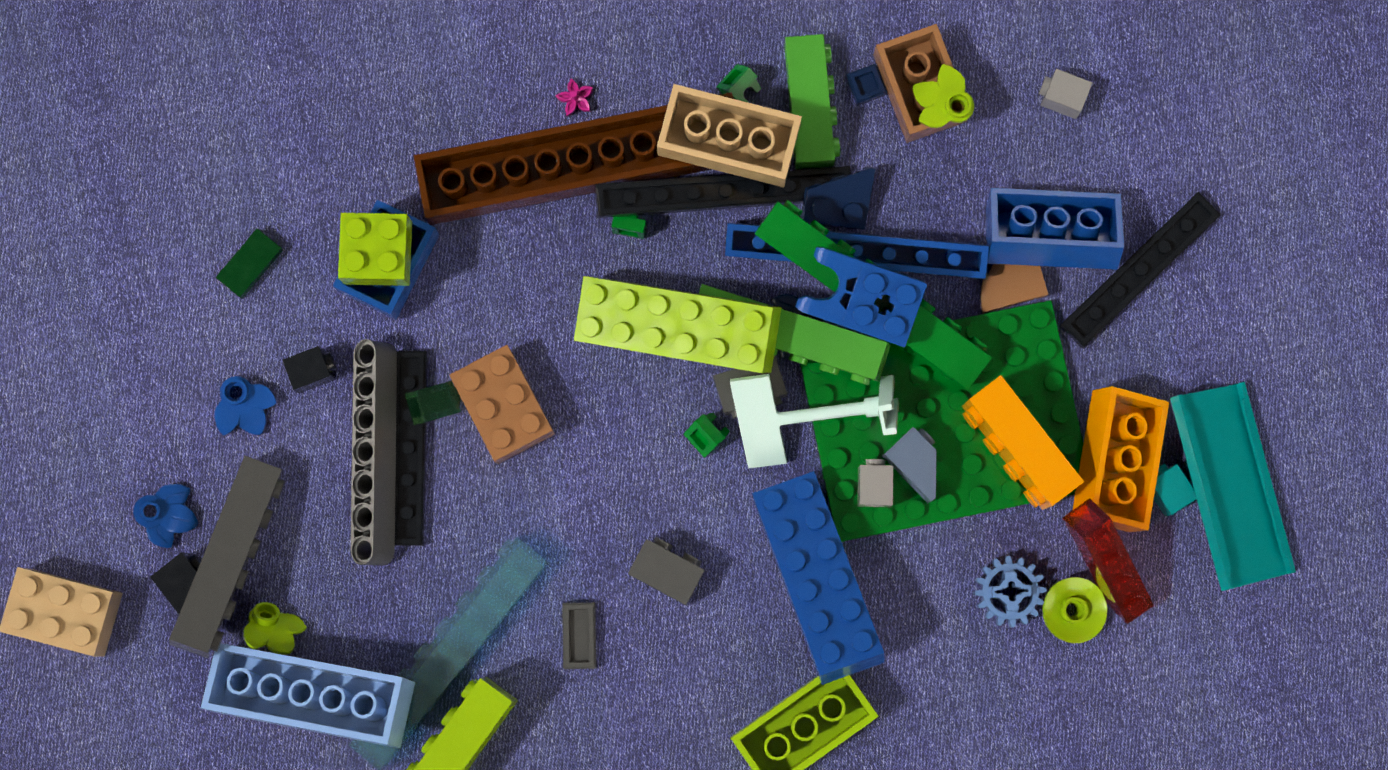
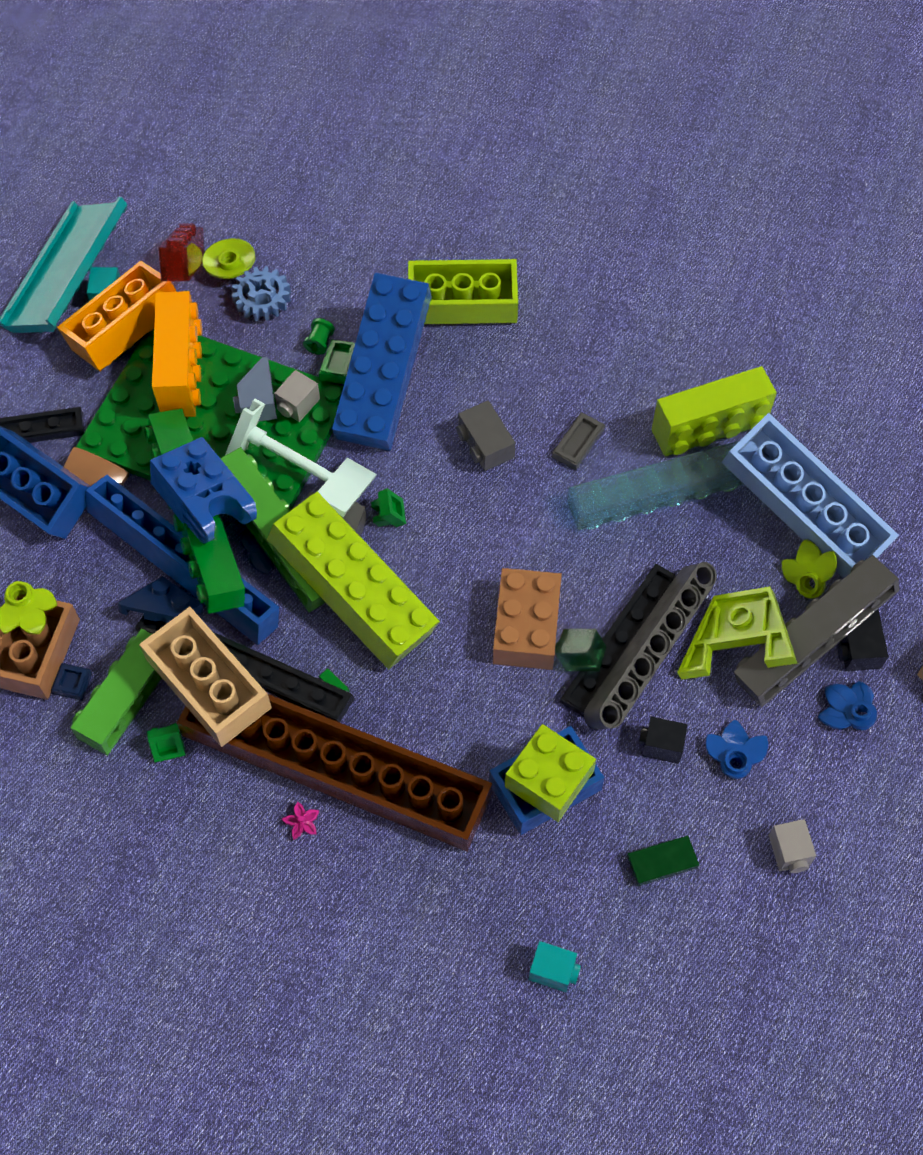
camera: 150 degrees left, 20 degrees down
(144, 344) = (792, 846): none -> light grey brick
(283, 112) = (554, 967): none -> teal brick
(305, 527) = (739, 621): none -> lime wing
(872, 563) = (336, 361): none -> green tile
(914, 580) = (319, 336): none -> green bush

